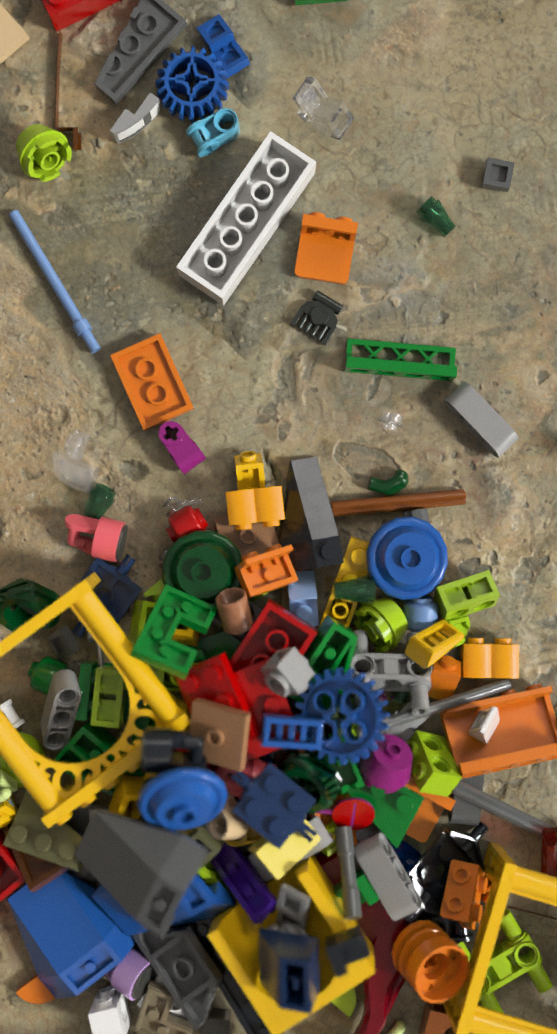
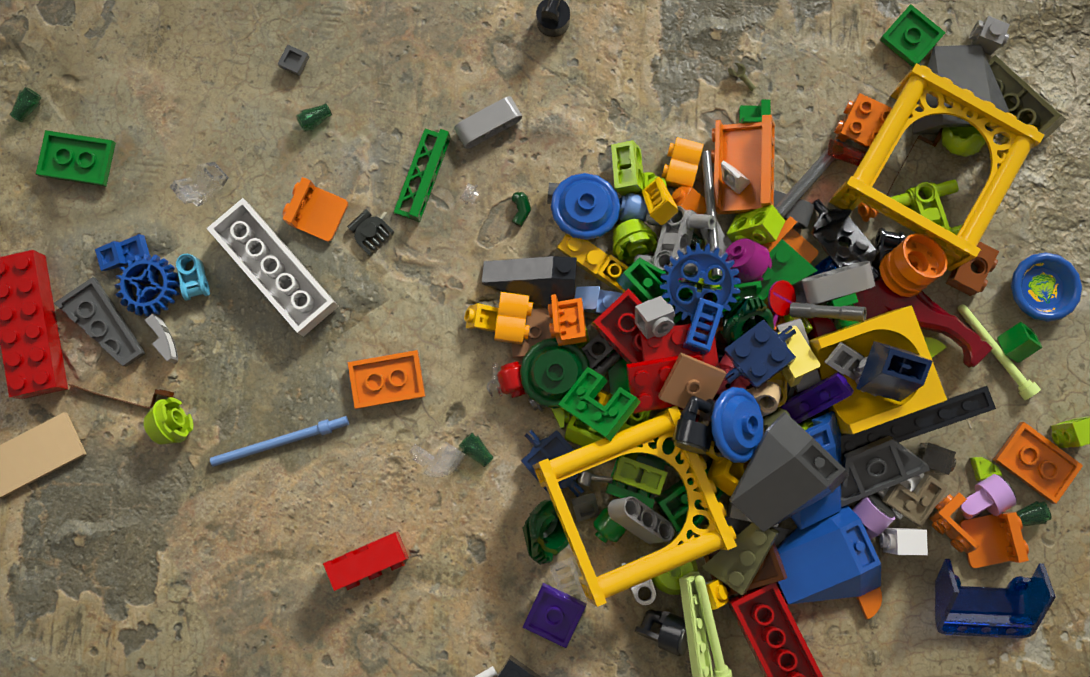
camera: 65 degrees left, 5 degrees down
(108, 536) = (509, 446): coral piece -> none
(183, 450) = (451, 366): magenta piece -> none
(234, 611) = (594, 353): nougat piece -> none
(345, 949) = (887, 321): black panel -> none
(355, 590) = (601, 251): clear green cone -> none
(398, 502) = (538, 204): dark orange axle -> none
(463, 893) = (865, 229): orange bracket -> none

